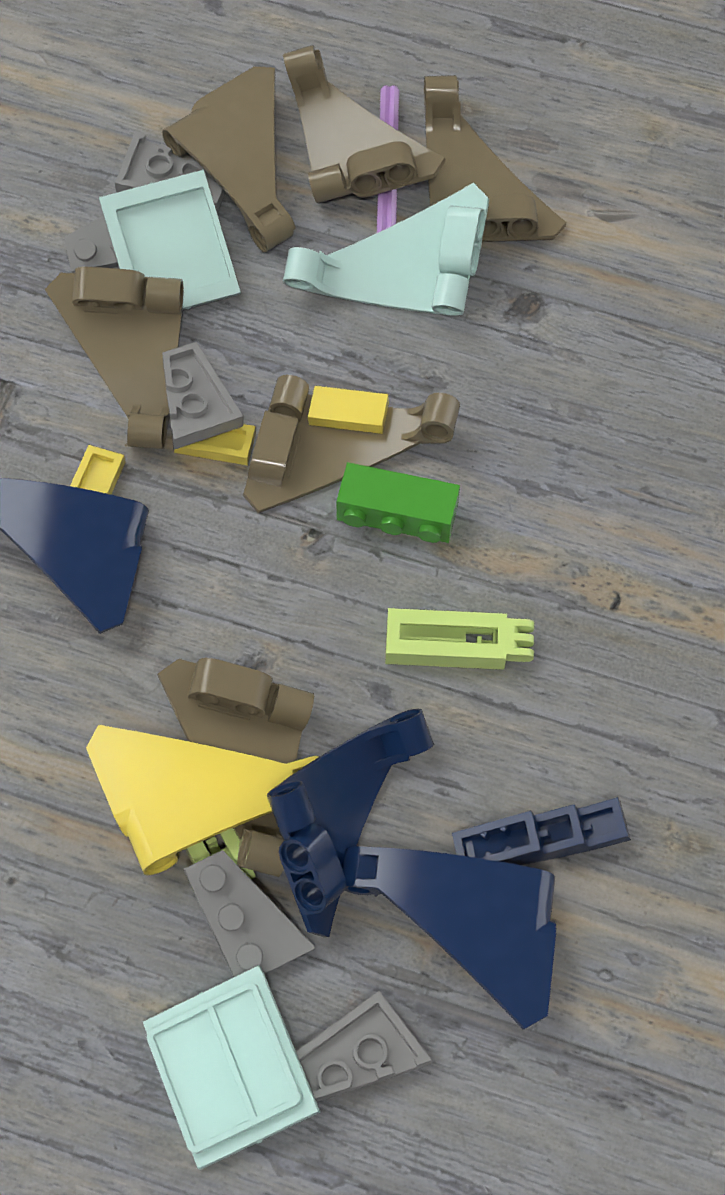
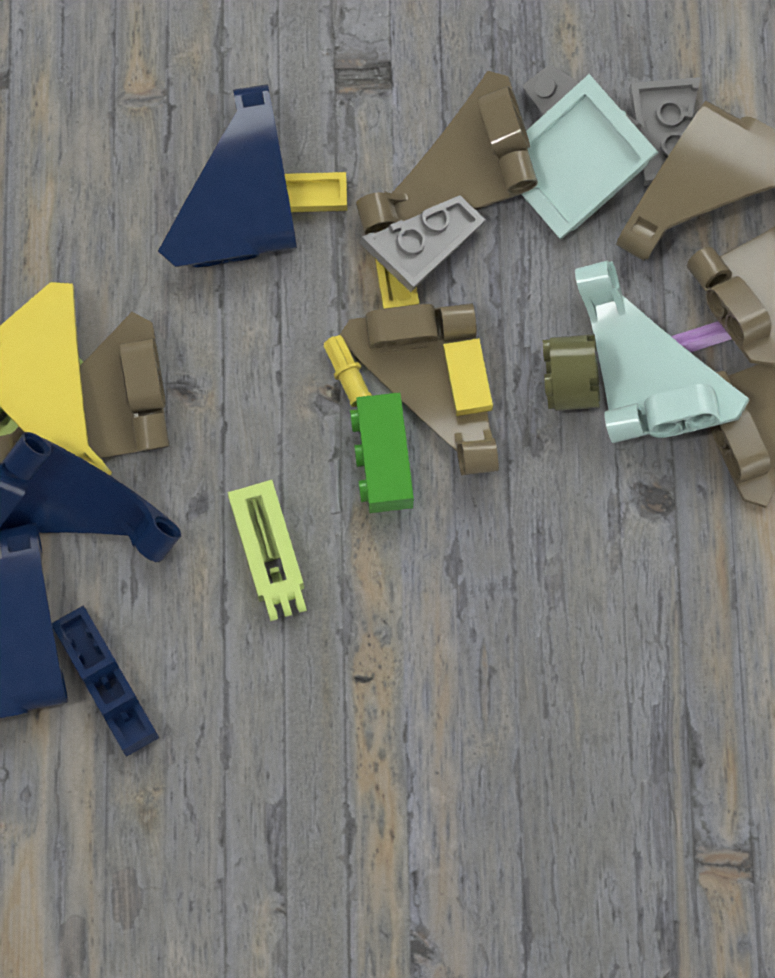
camera: 70 degrees right, 10 degrees up
(296, 510) = (346, 369): none -> light yellow axle
(385, 316) = (571, 372): none -> olive brick

